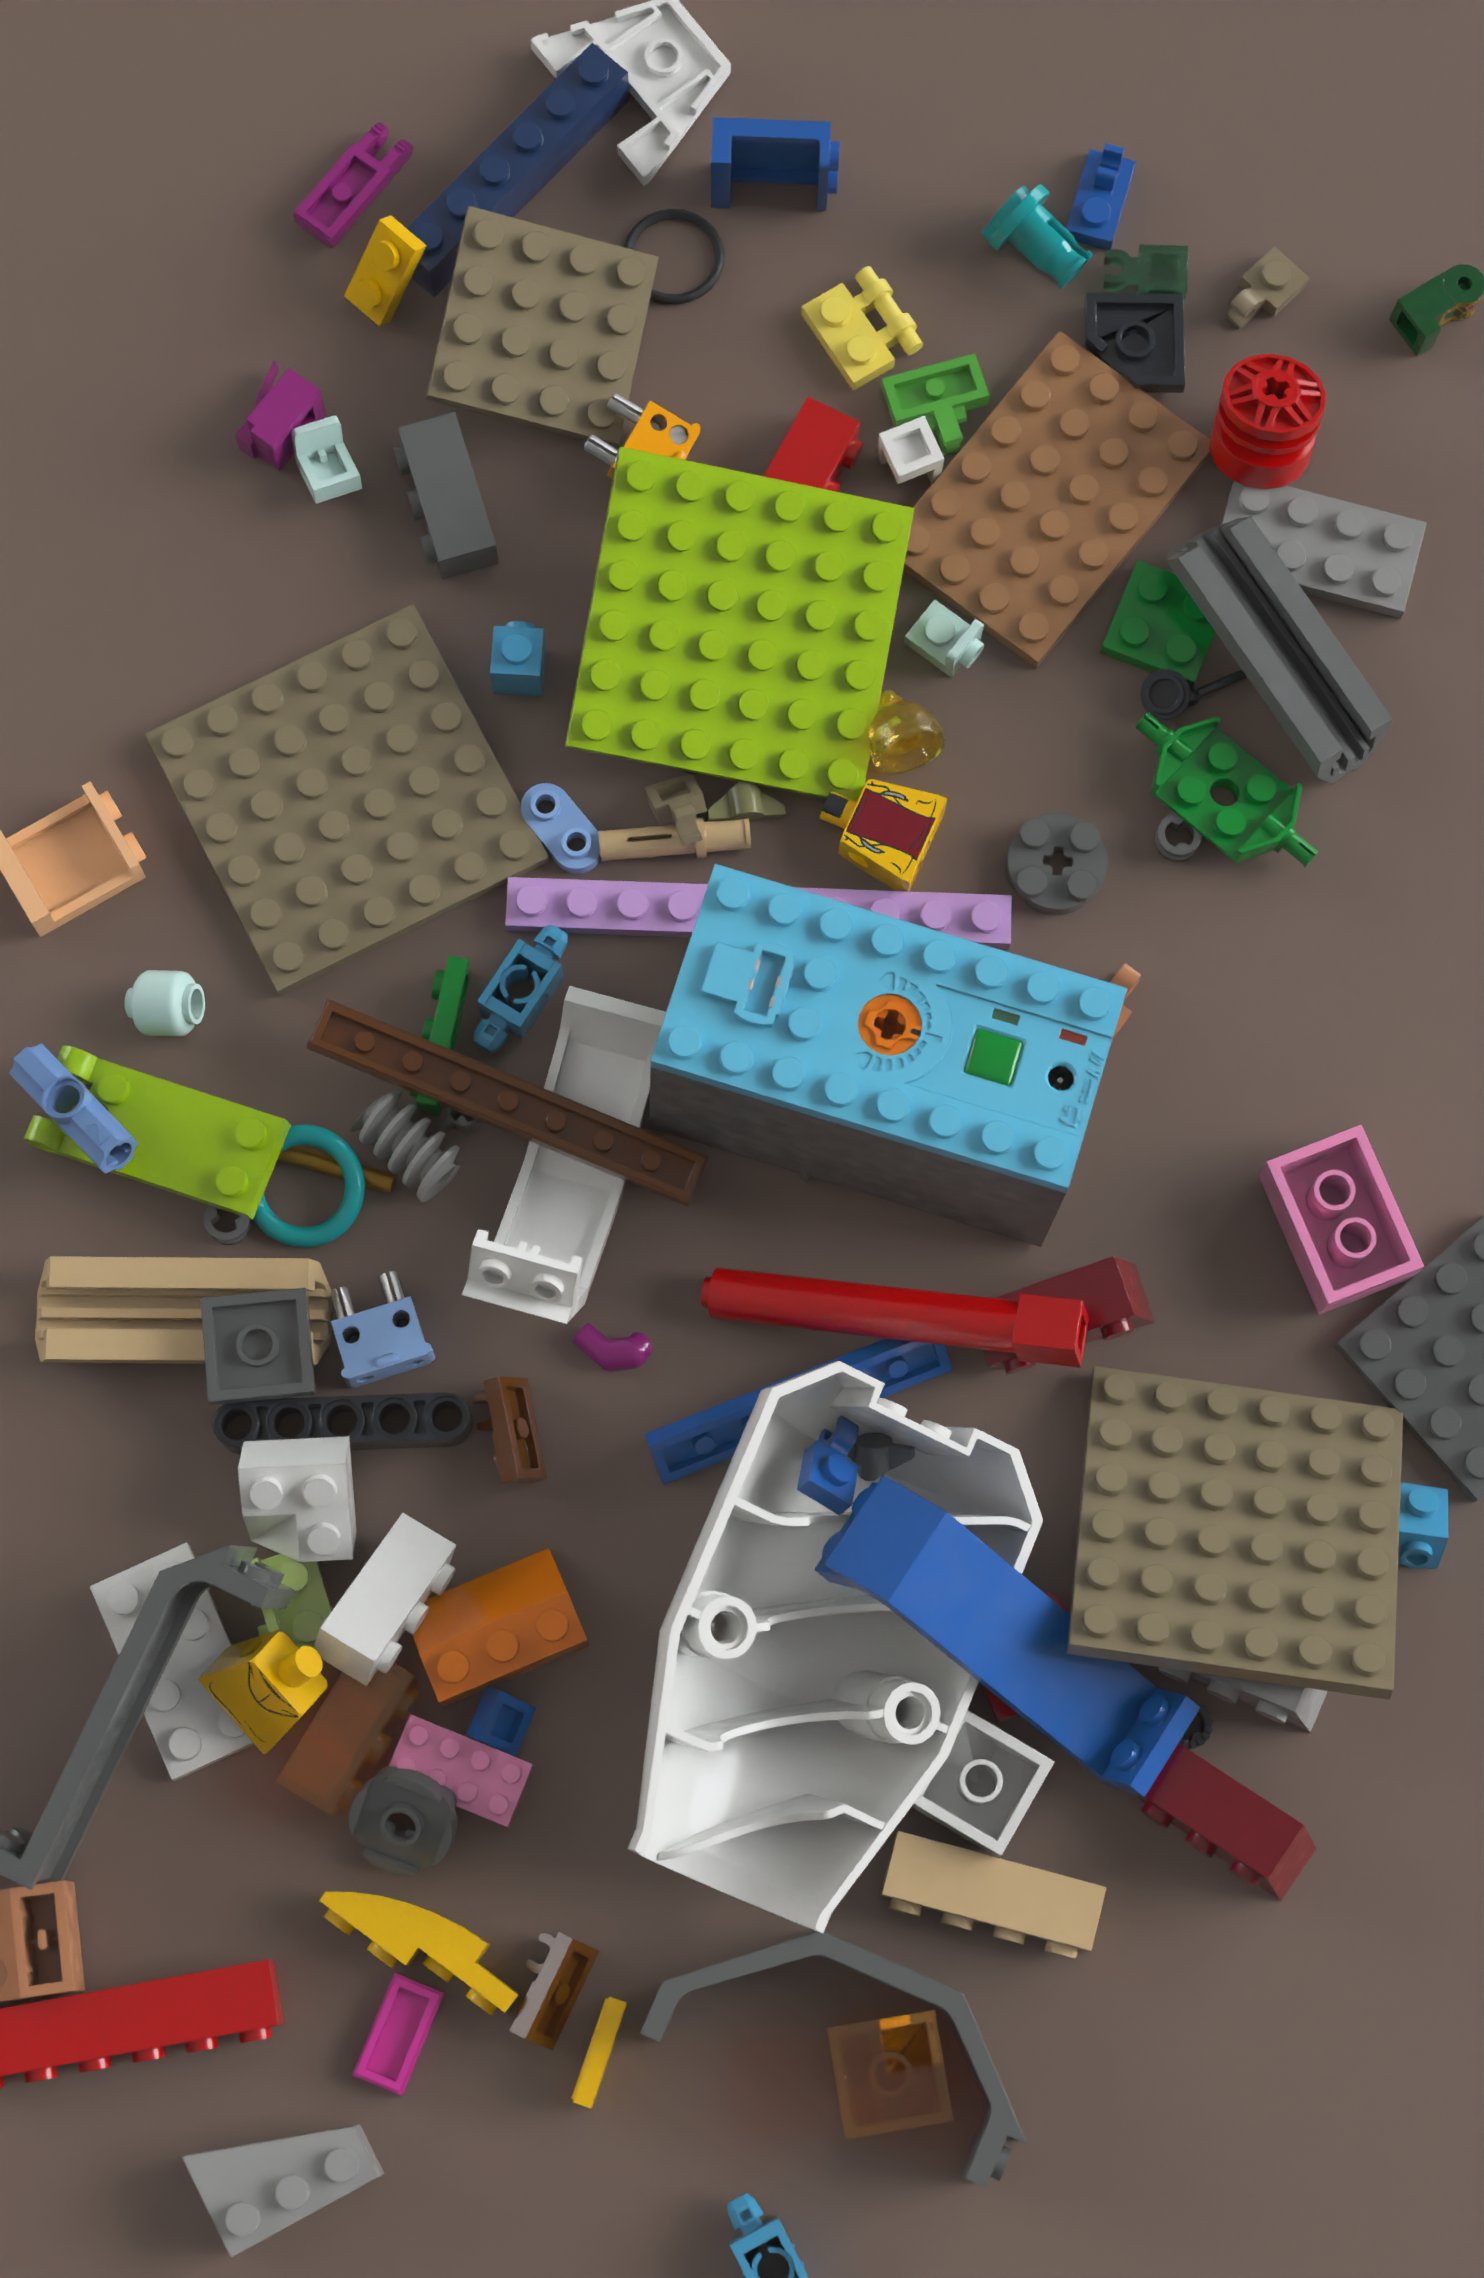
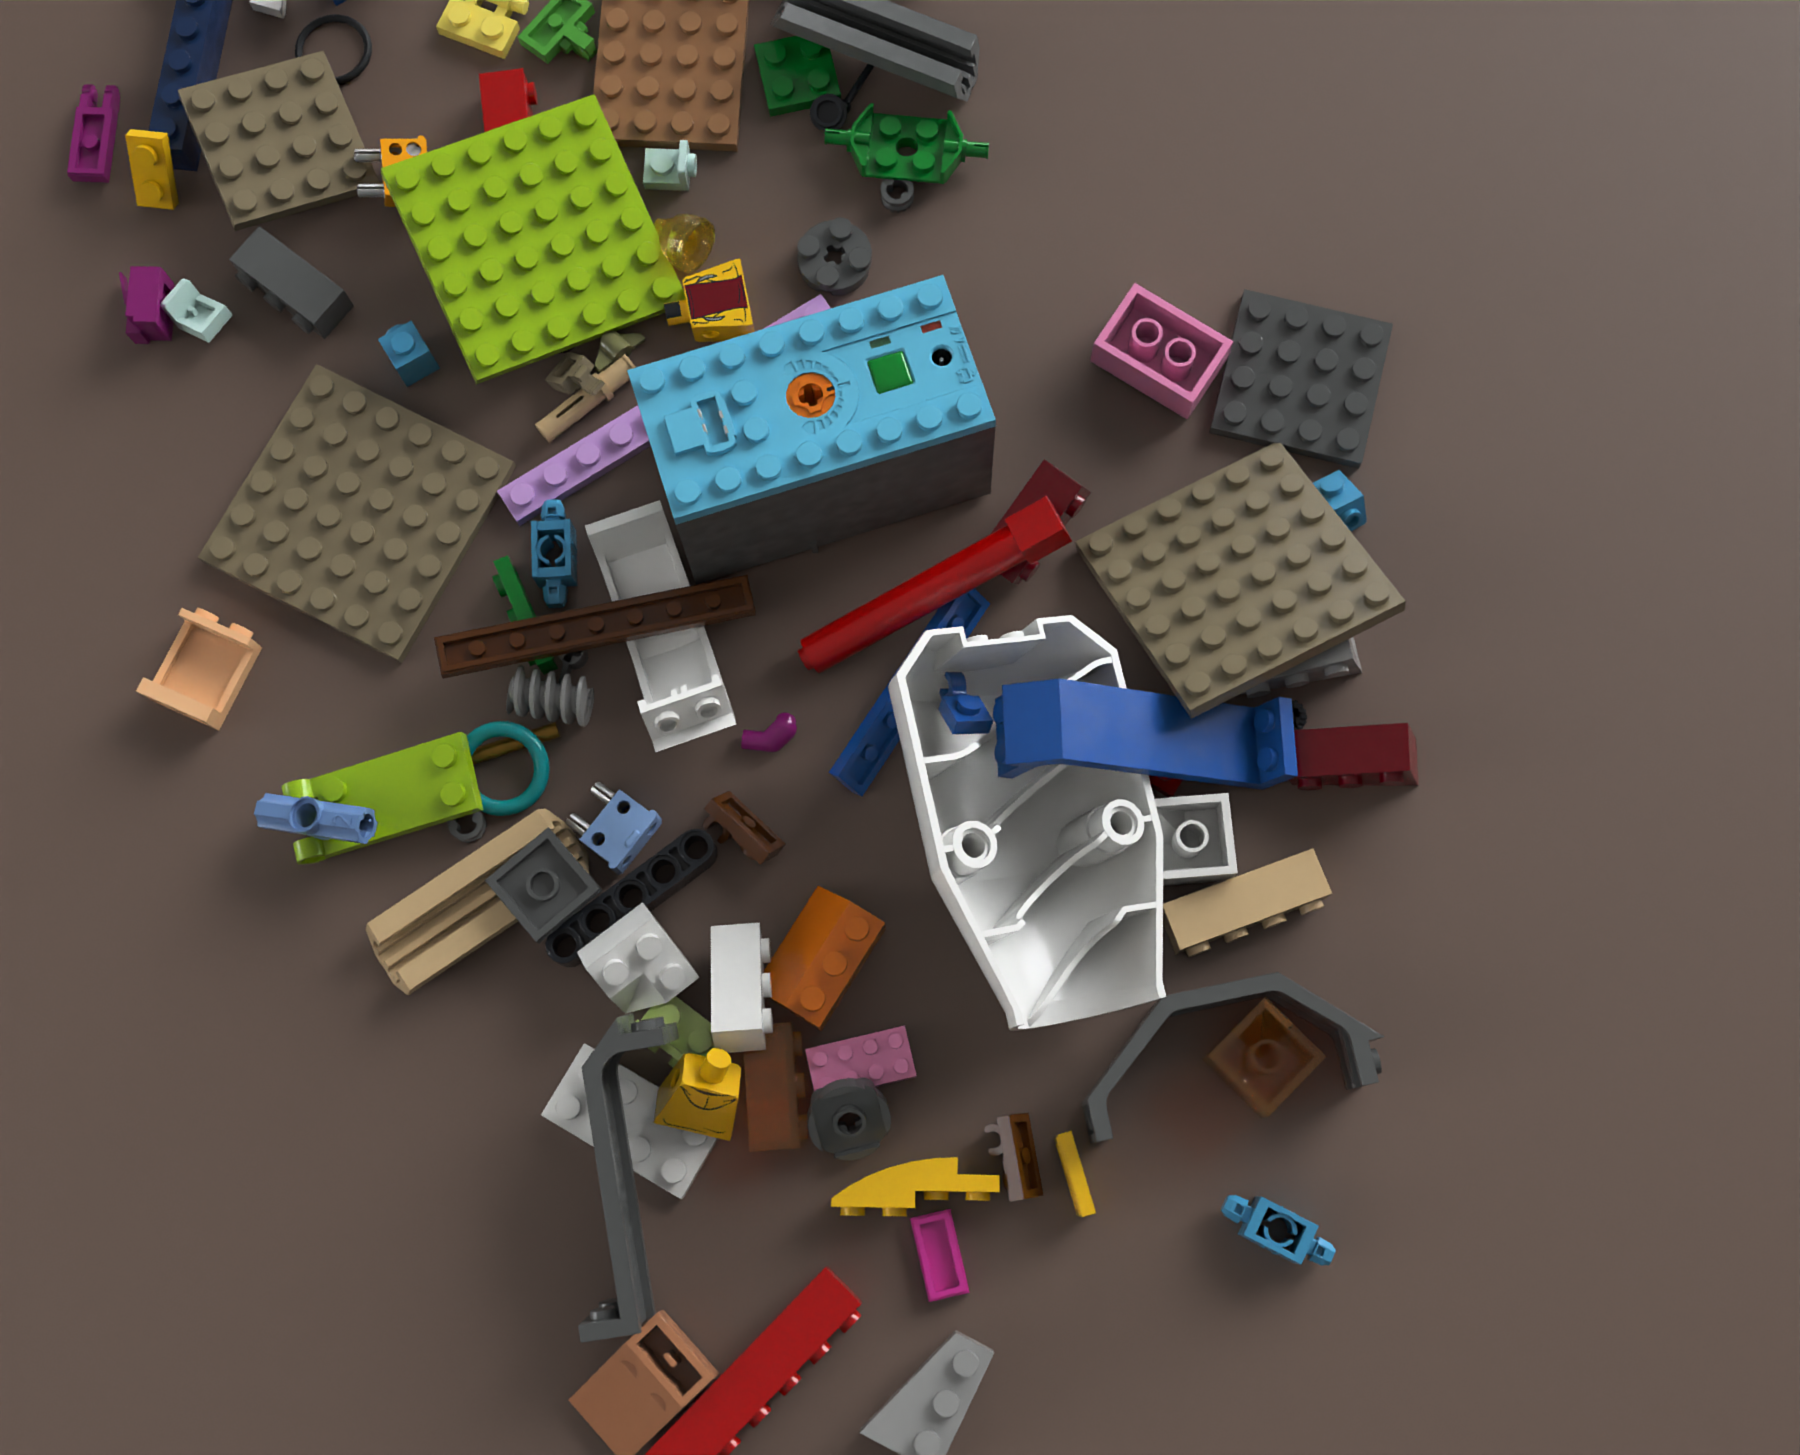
camera: 30 degrees left, 0 degrees up
(165, 1003) = (330, 715): light aqua head -> none
(501, 1721) = (865, 1012): blue plate -> none
(560, 827) = (508, 439): light blue plate -> none
(878, 1454) = (985, 681): dark grey piece -> none
(911, 451) = (567, 66): white panel -> none

